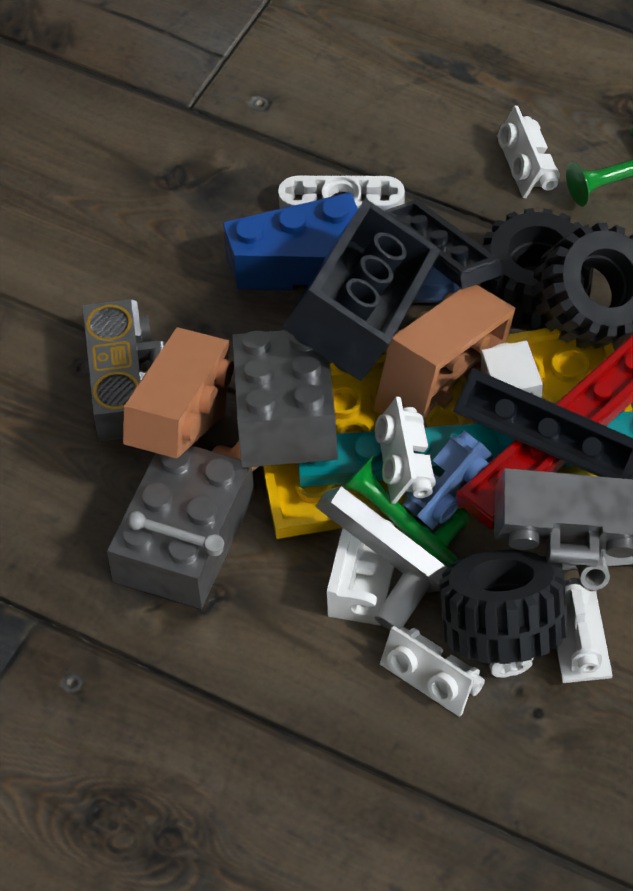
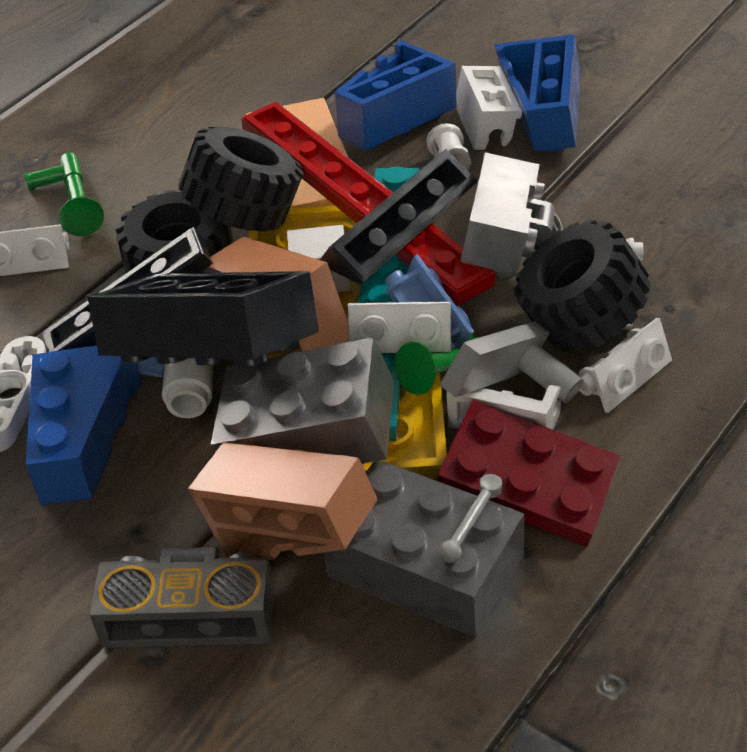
camera: 80 degrees left, 10 degrees down
(277, 594) = (542, 471): none -> dark red plate

